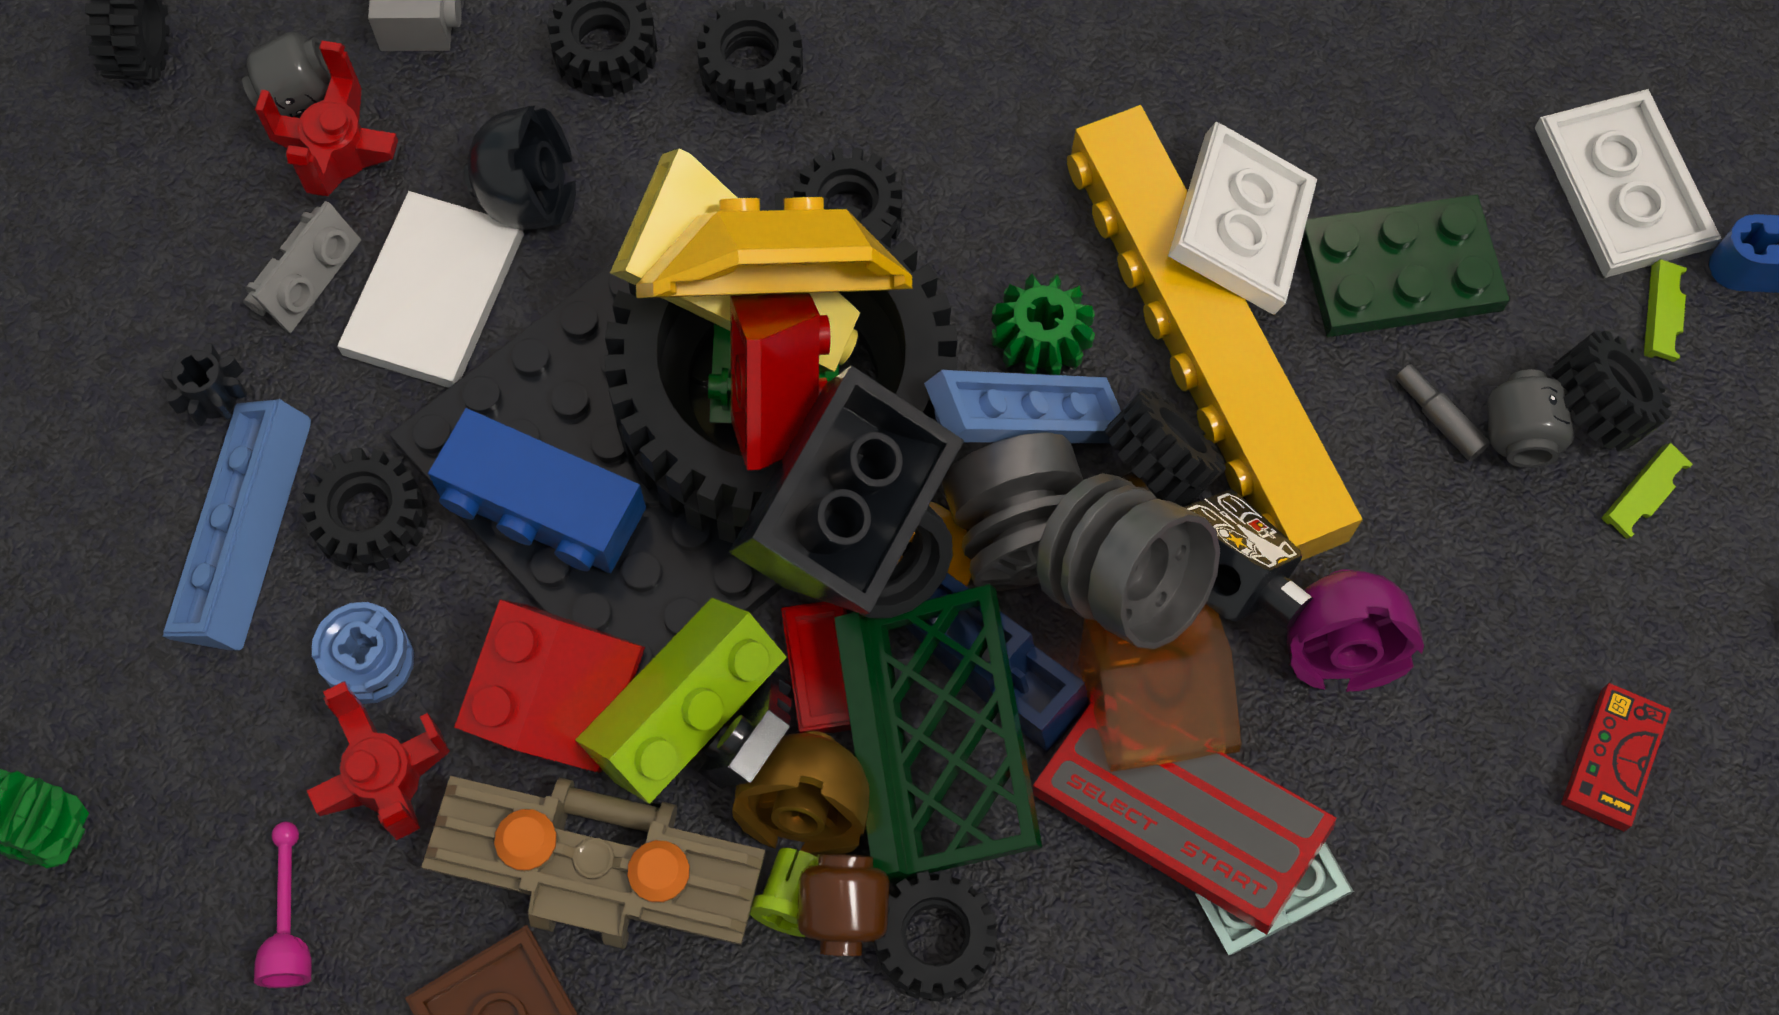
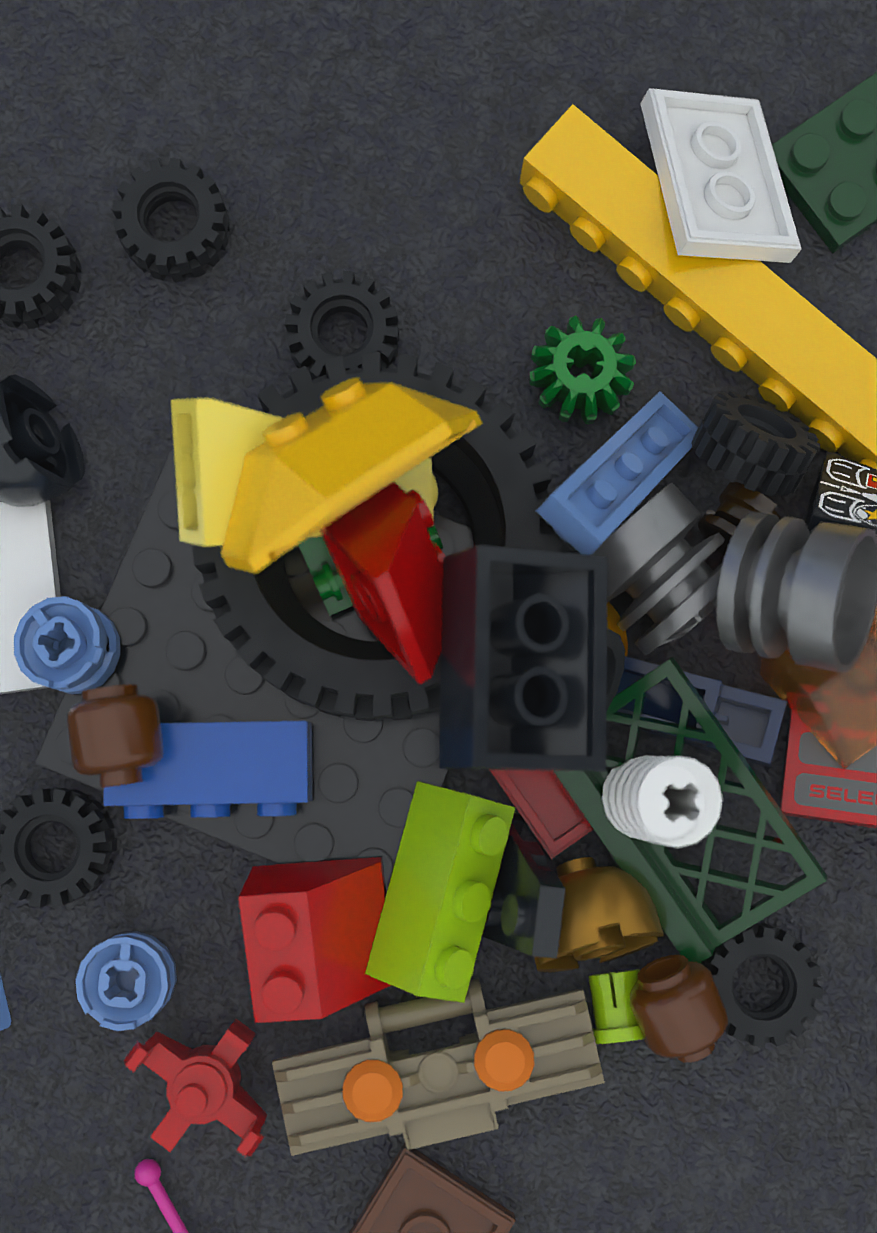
camera: 30 degrees left, 15 degrees up
(470, 342) = (65, 645): none -> medium blue wheel
(470, 409) = (115, 734): none -> reddish brown head
(915, 684) = (662, 799): none -> white piece

